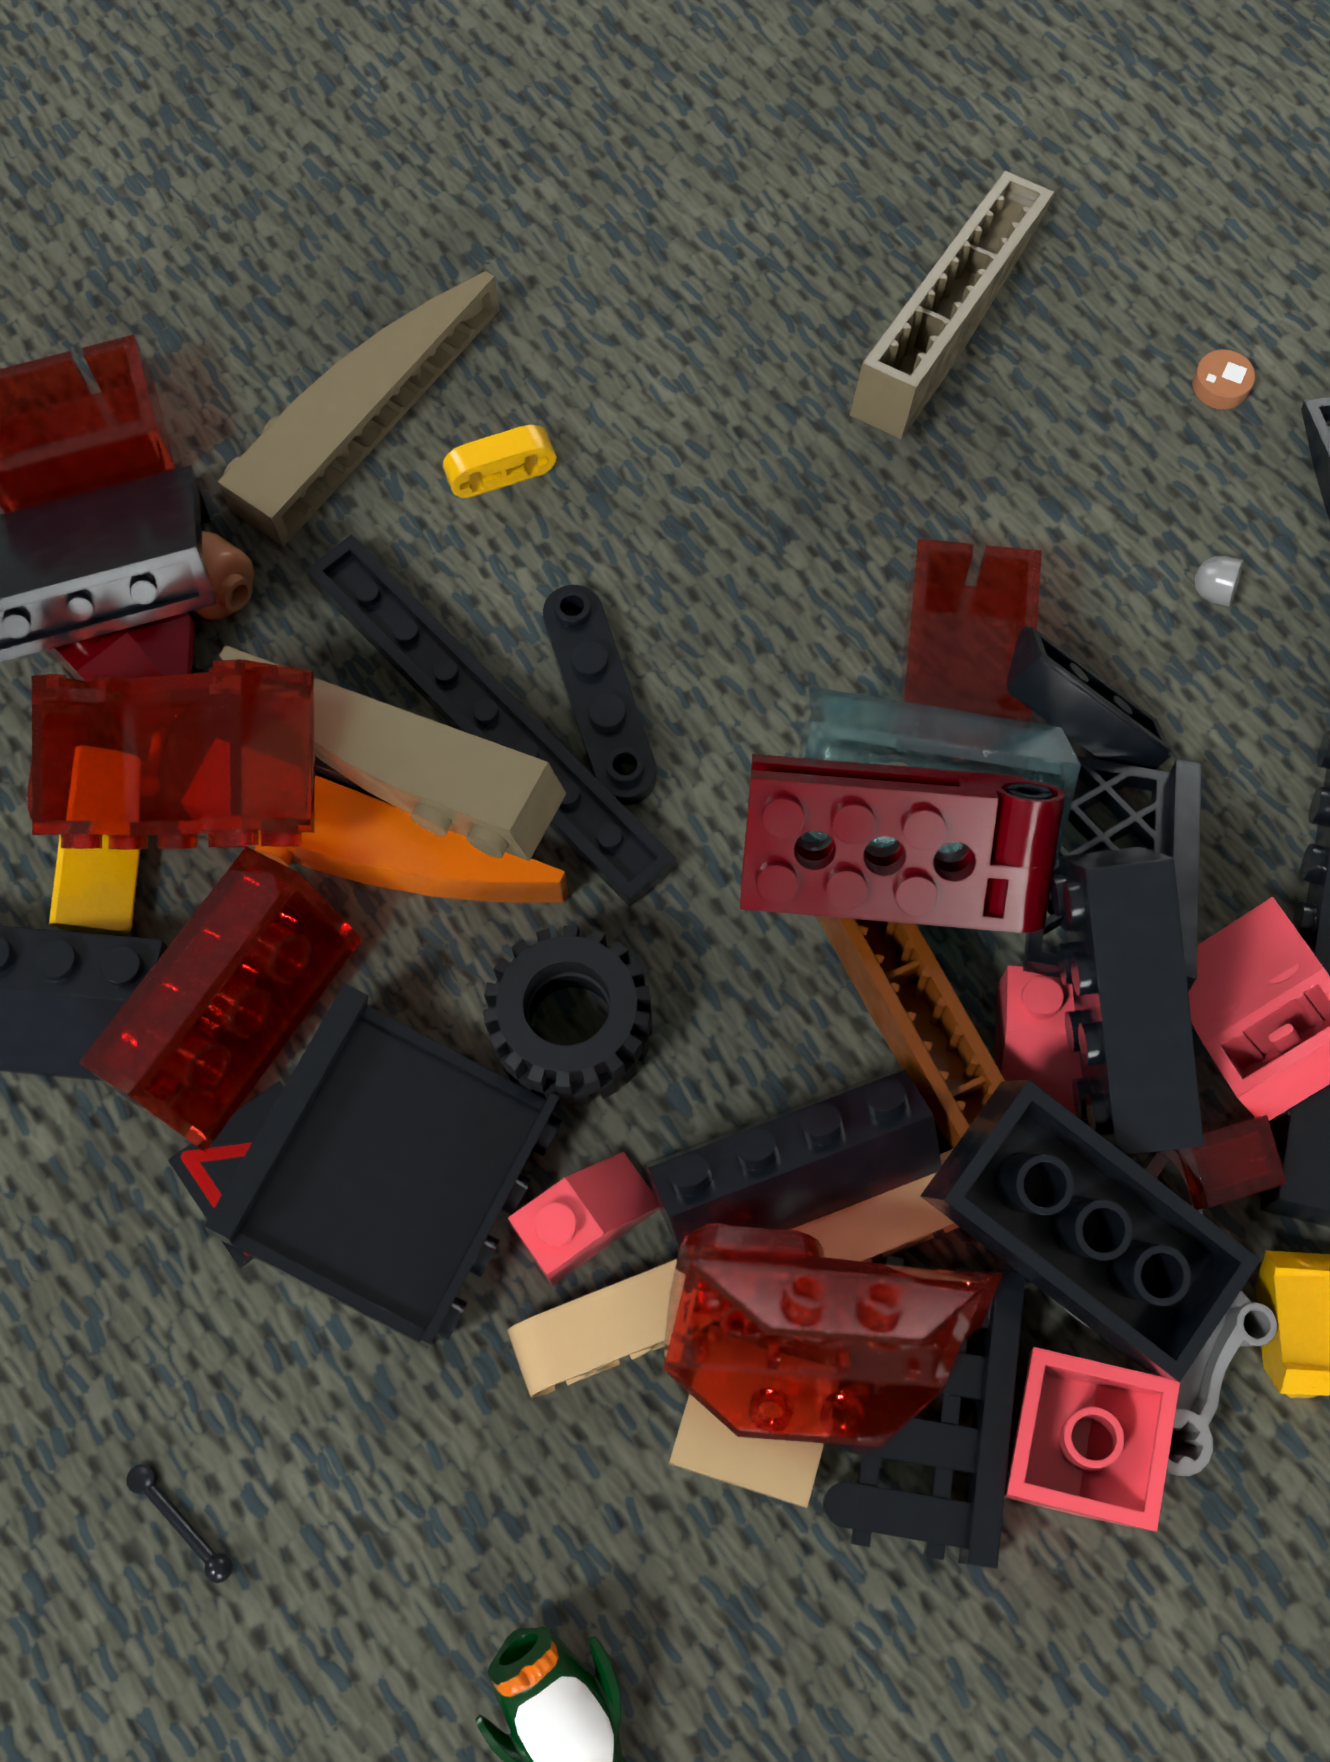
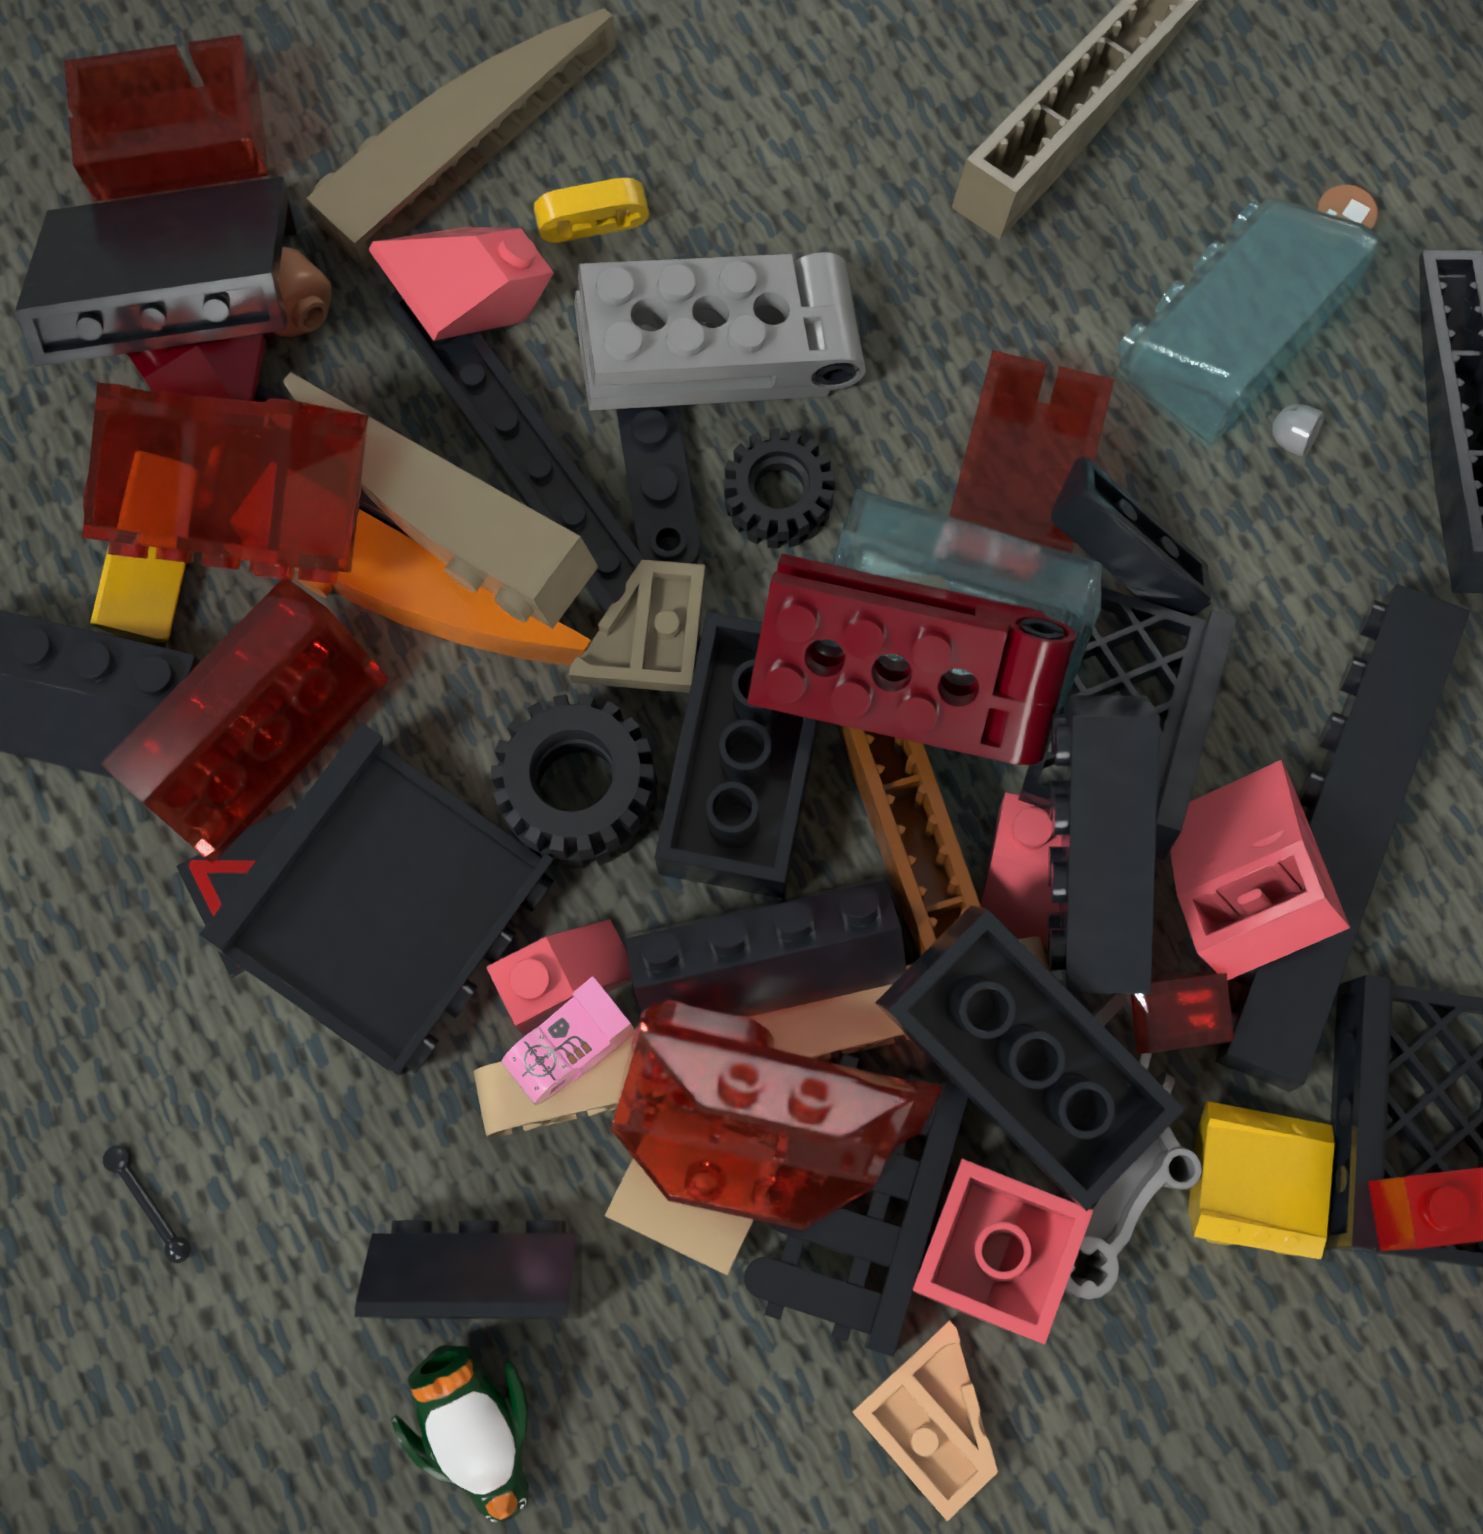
camera: 10 degrees right, 5 degrees up
(387, 538) = (465, 277): none -> coral slope
(537, 1545) = (472, 1272): none -> black slope
(606, 1284) = (568, 1043): none -> bright pink leg
(622, 856) = (649, 633): none -> dark tan wing
(640, 556) = (716, 330): none -> light grey hinge
(726, 668) = (774, 455): none -> black tyre
(732, 983) = (734, 773): none -> black brick
(1046, 1635) = (933, 1423): none -> light nougat wing
(1149, 478) = (1244, 314): none -> clear light blue windscreen

